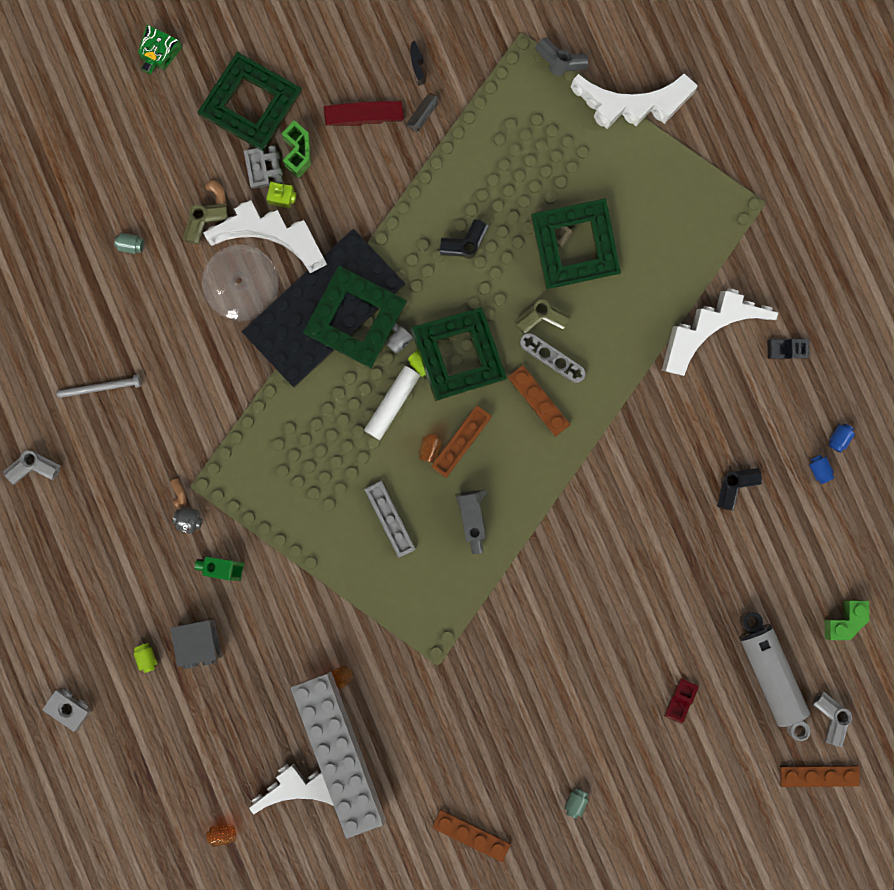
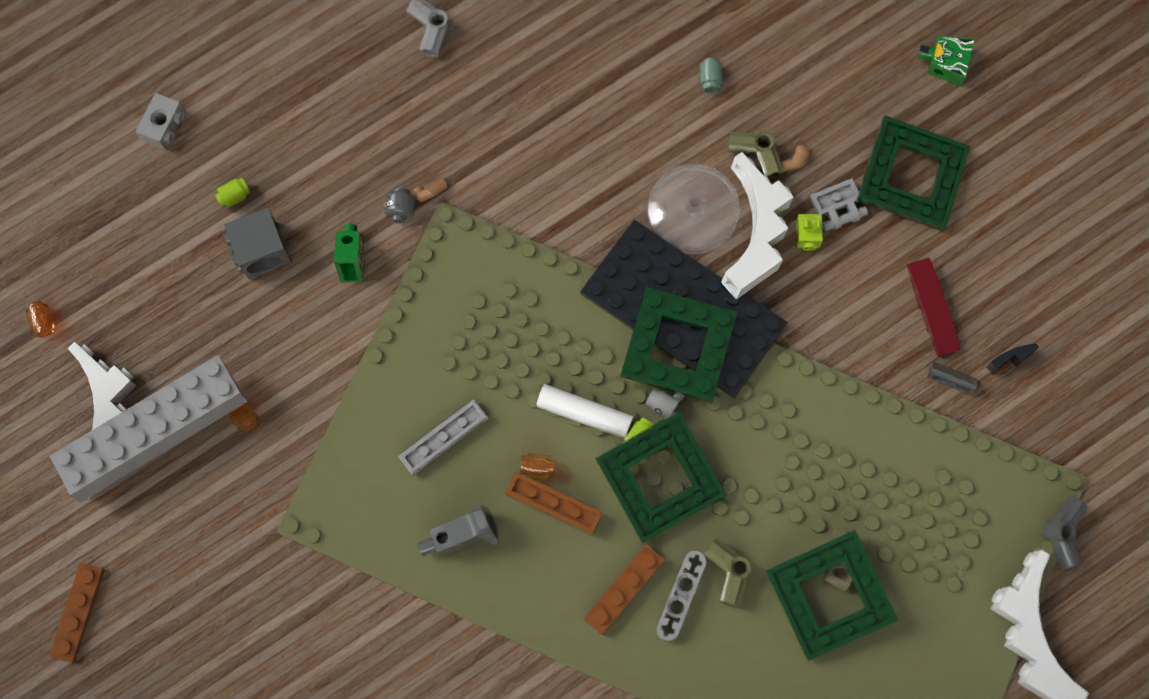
camera: 85 degrees right, 10 degrees down
(136, 380) = (551, 116): light grey bar -> none
(300, 157) = (860, 243): bright green brick -> none
(474, 237) = (794, 450): black piece -> none

